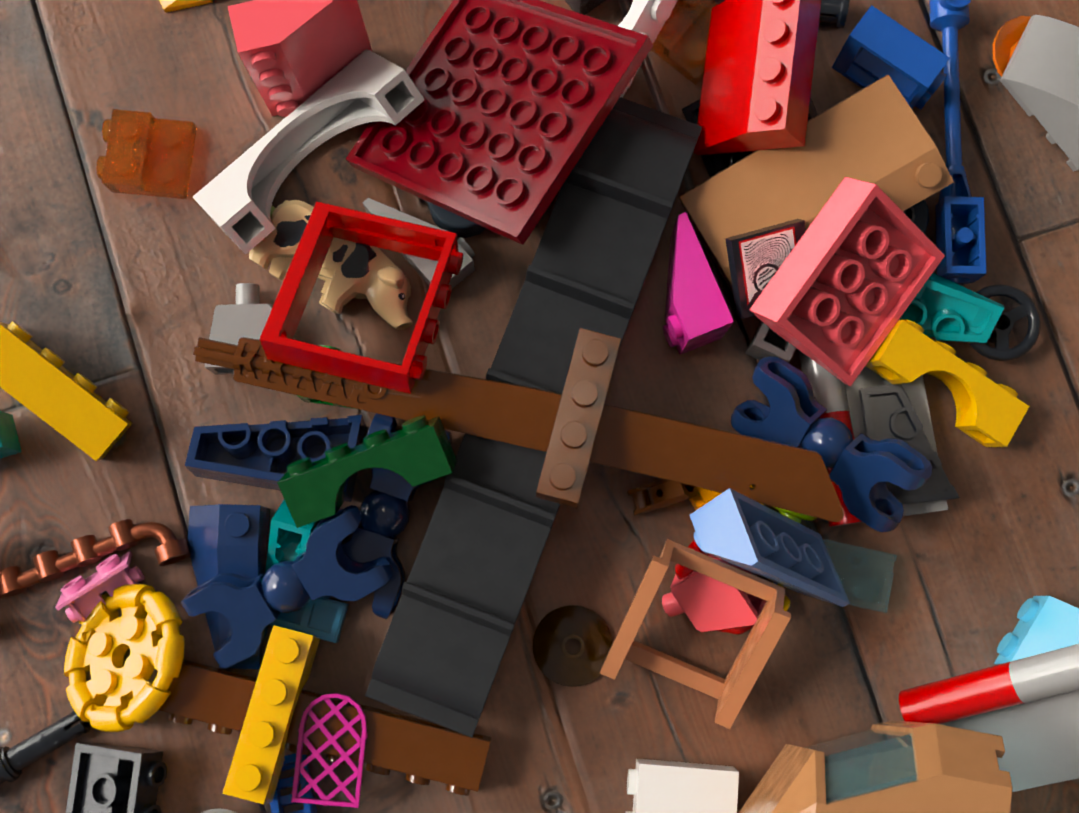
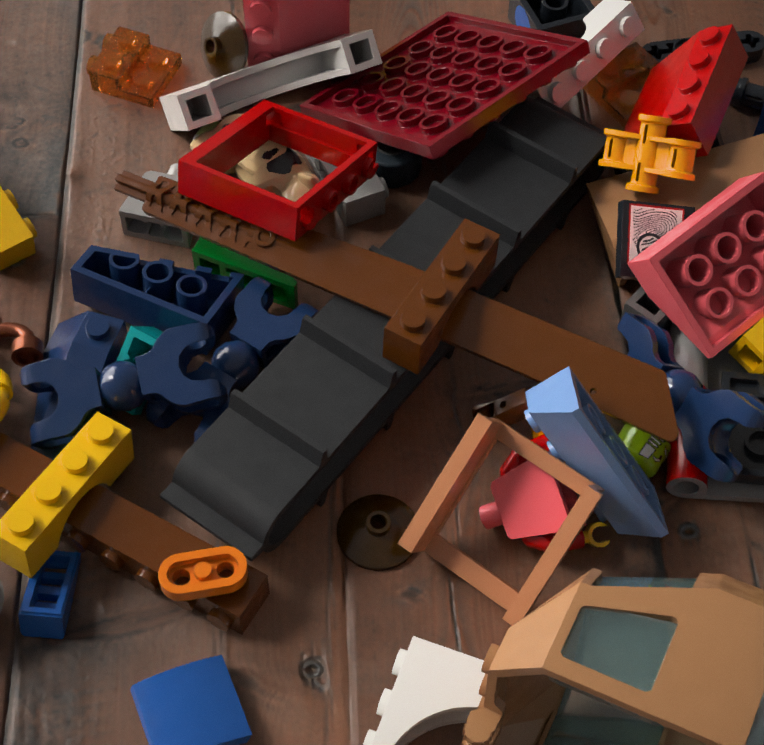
camera: 15 degrees right, 25 degrees down
(239, 106) = (224, 44): none -> dark brown dish
(318, 618) = (148, 441): dark azure tile -> none
(358, 771) = (59, 570): dark pink window -> none
(416, 453) = (283, 286): dark green arch -> none
(435, 768) = (203, 571): none -> orange plate
(694, 302) = (580, 263): dark pink slope -> none
(745, 168) = (649, 154): none -> light orange axle
(863, 574) = (691, 538): clear light blue plate -> none

